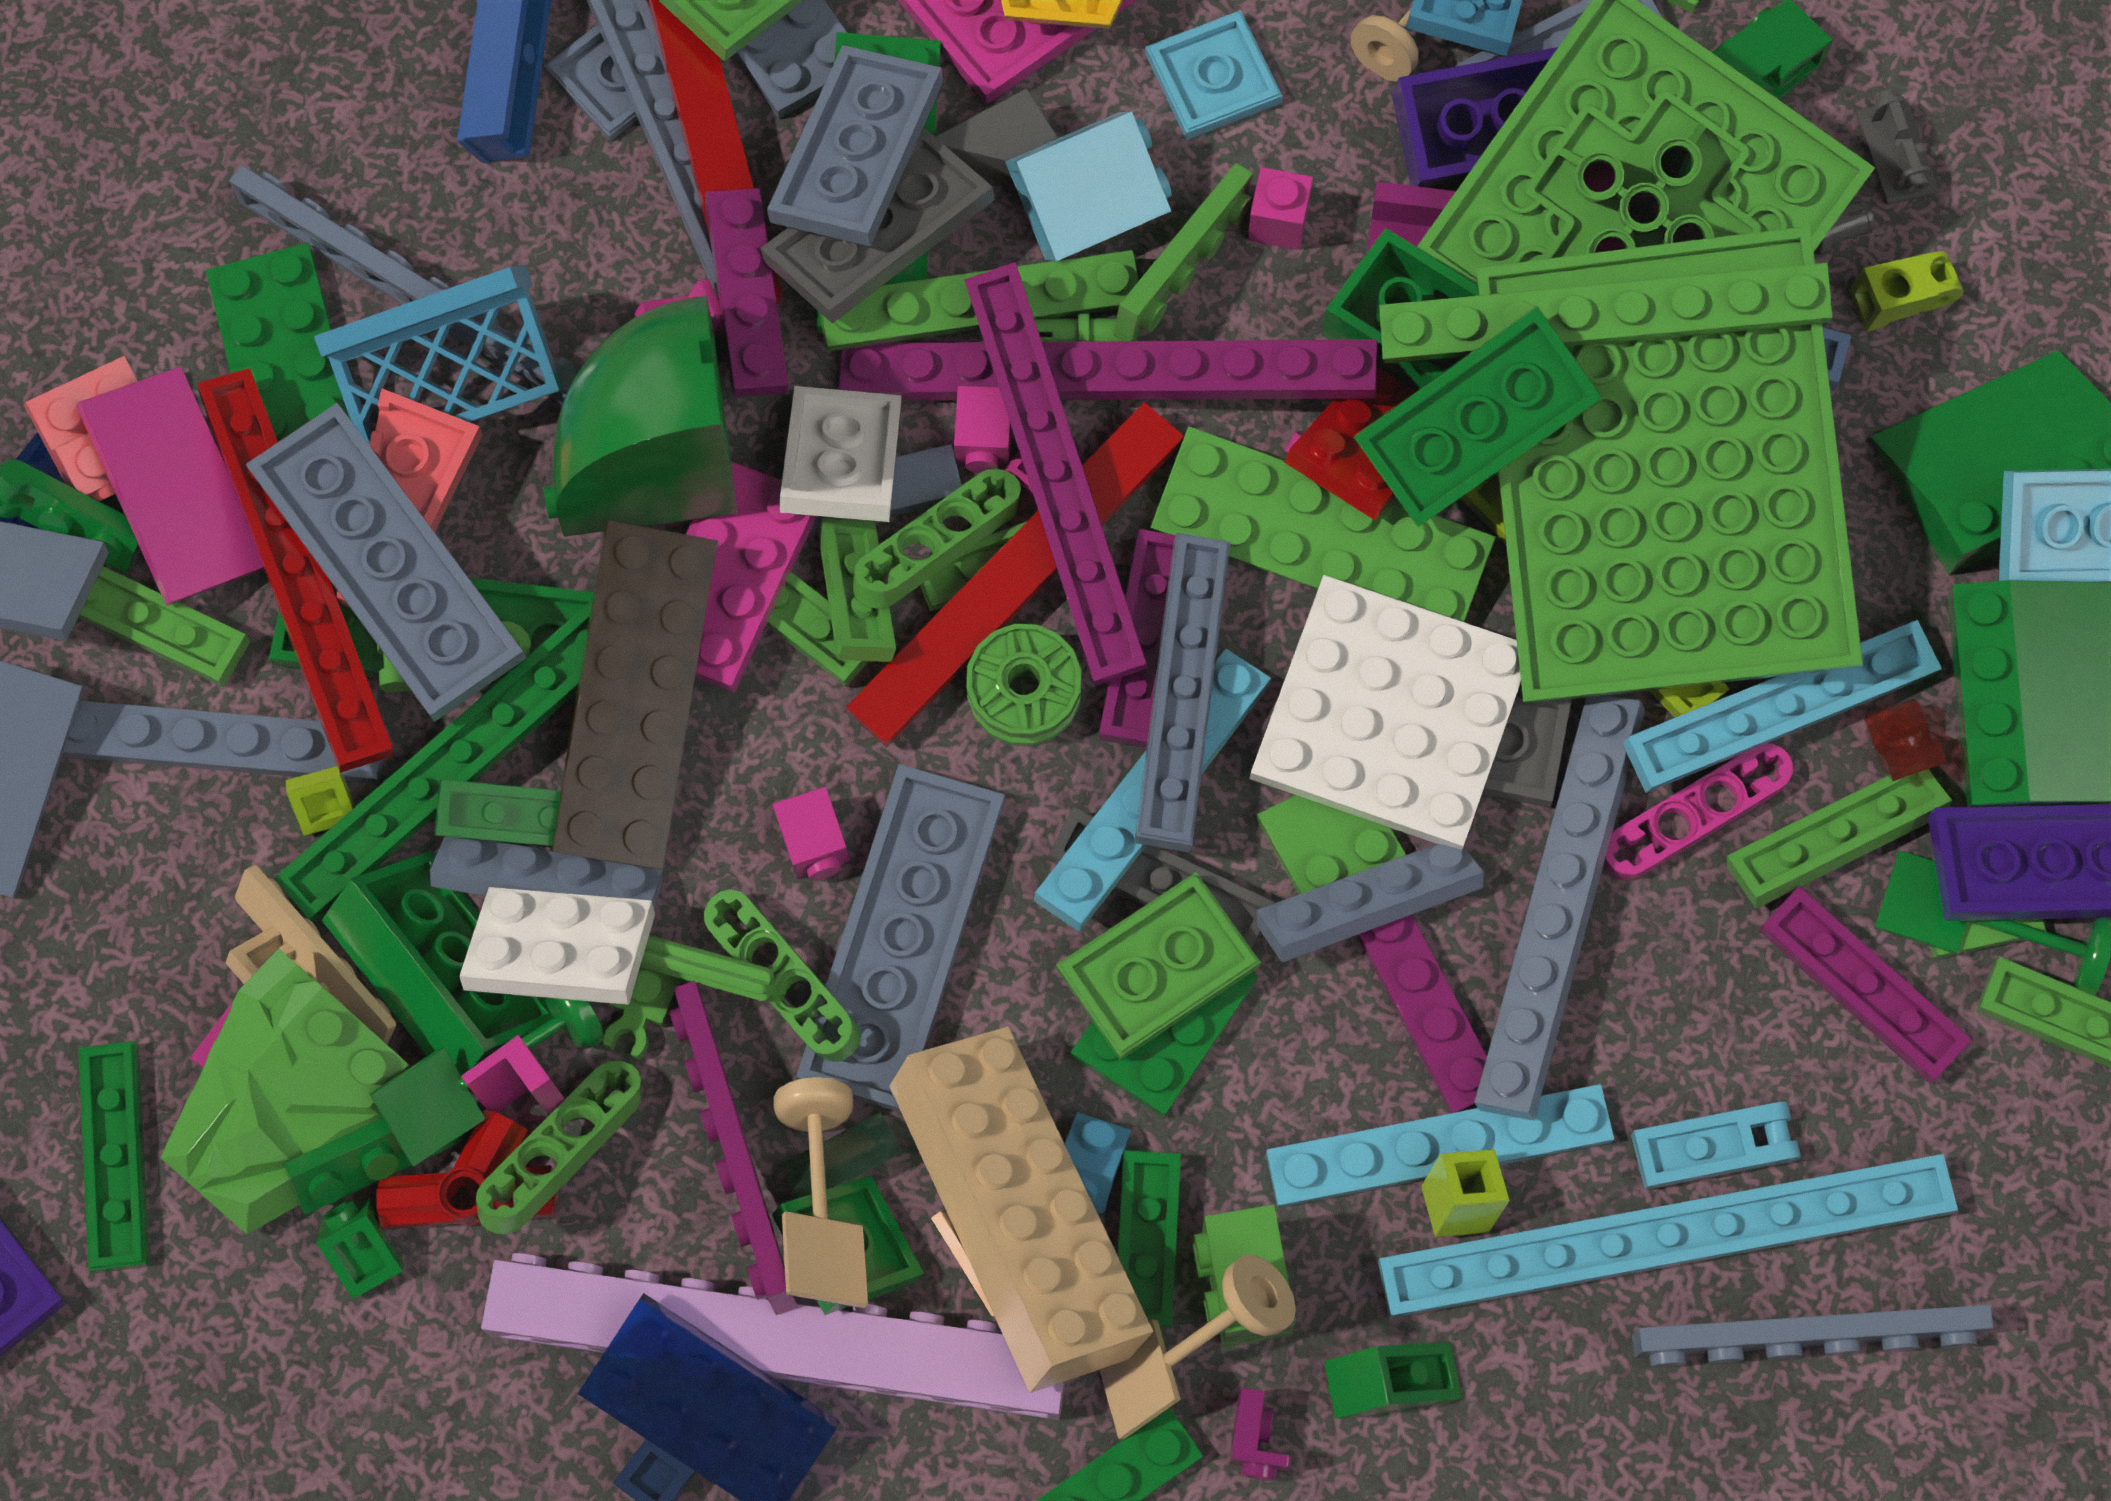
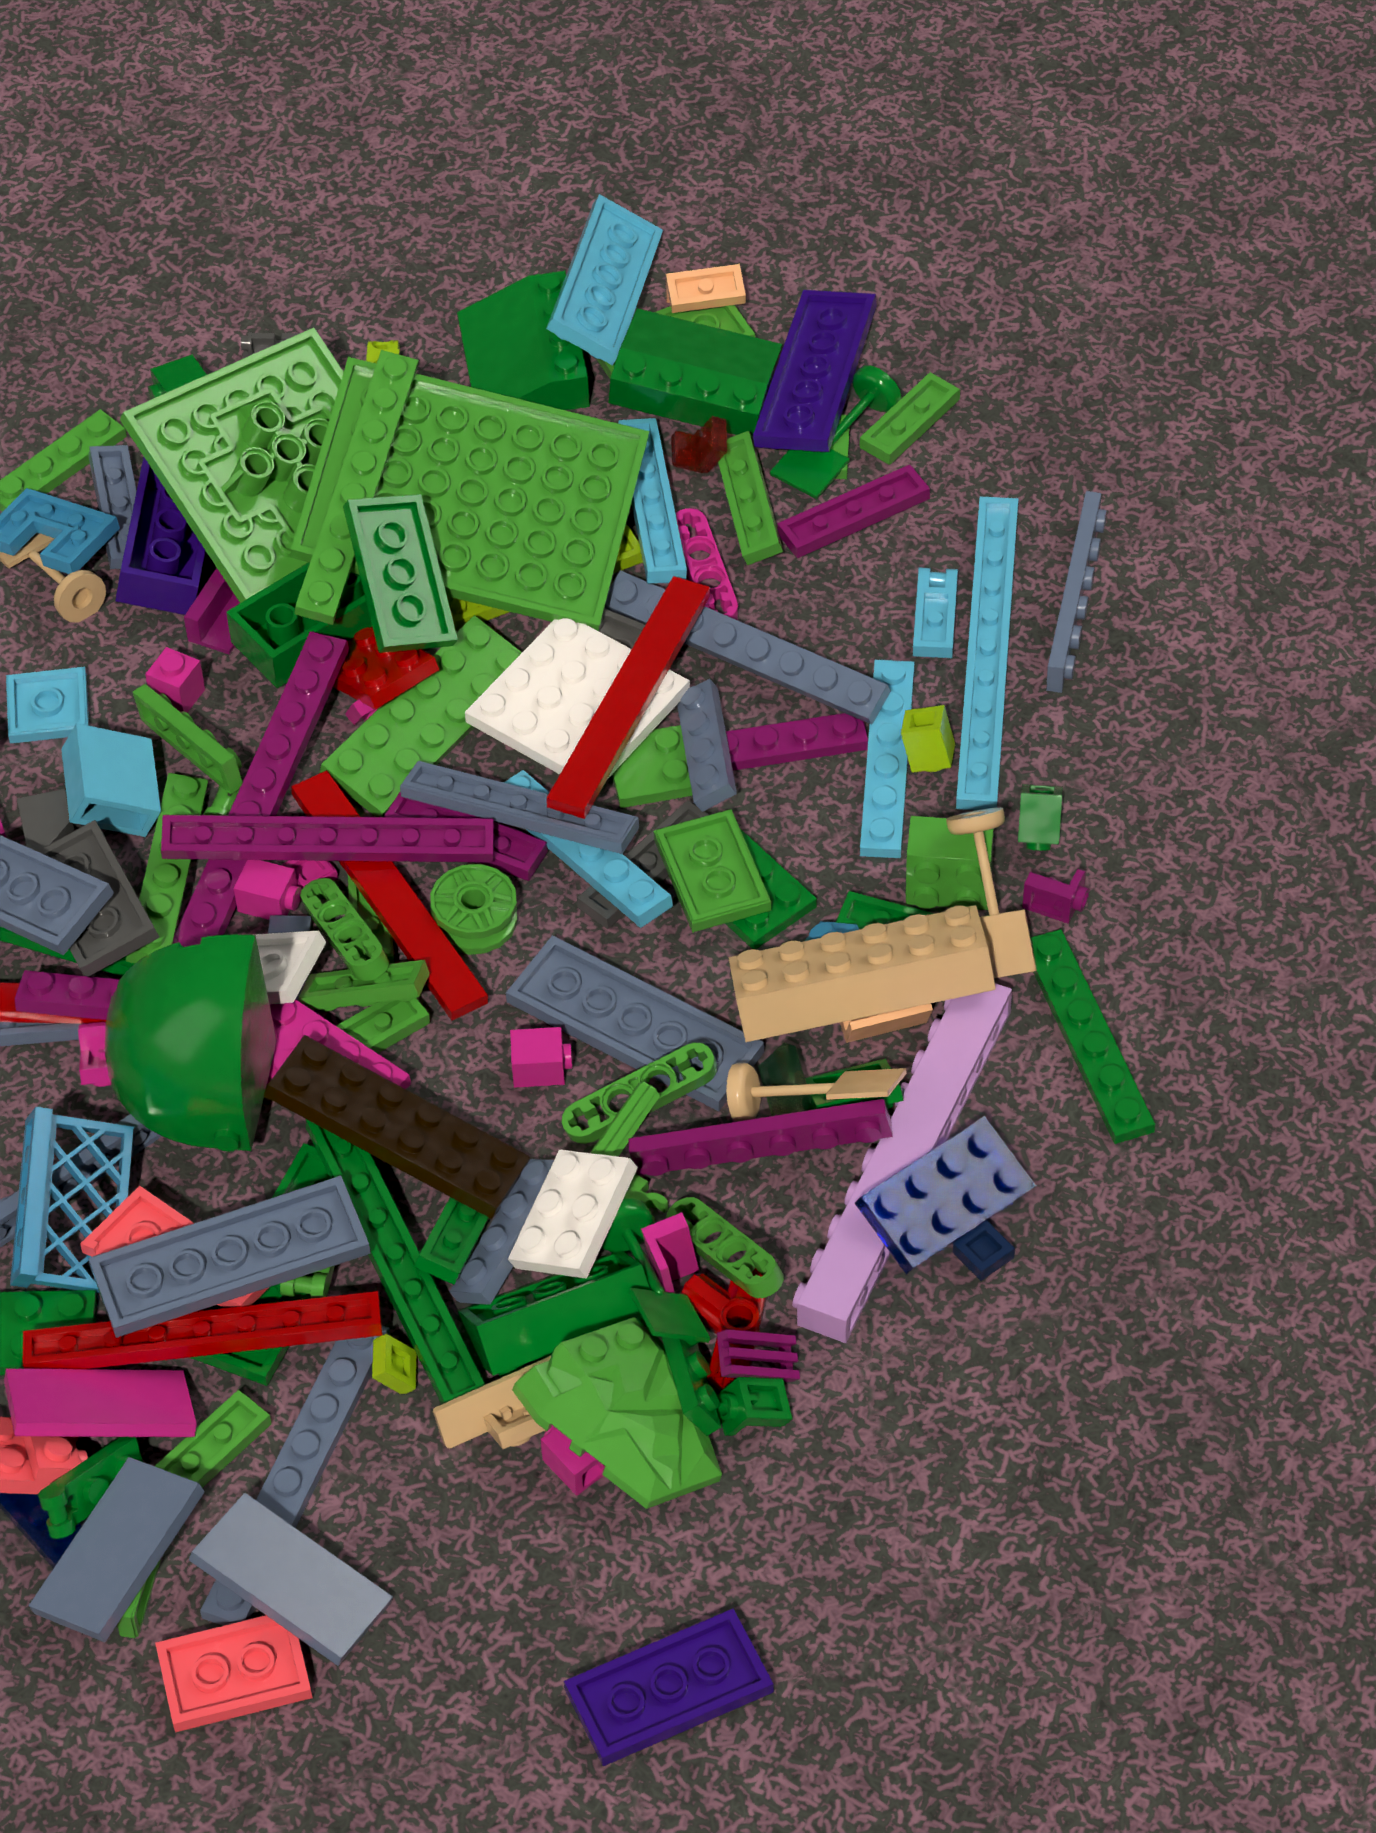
camera: 75 degrees left, 20 degrees down
(113, 1157) = (627, 1565): green tile -> none
(403, 1238) = (783, 1356): none -> magenta tile
(1395, 775) = (628, 698): none -> red tile

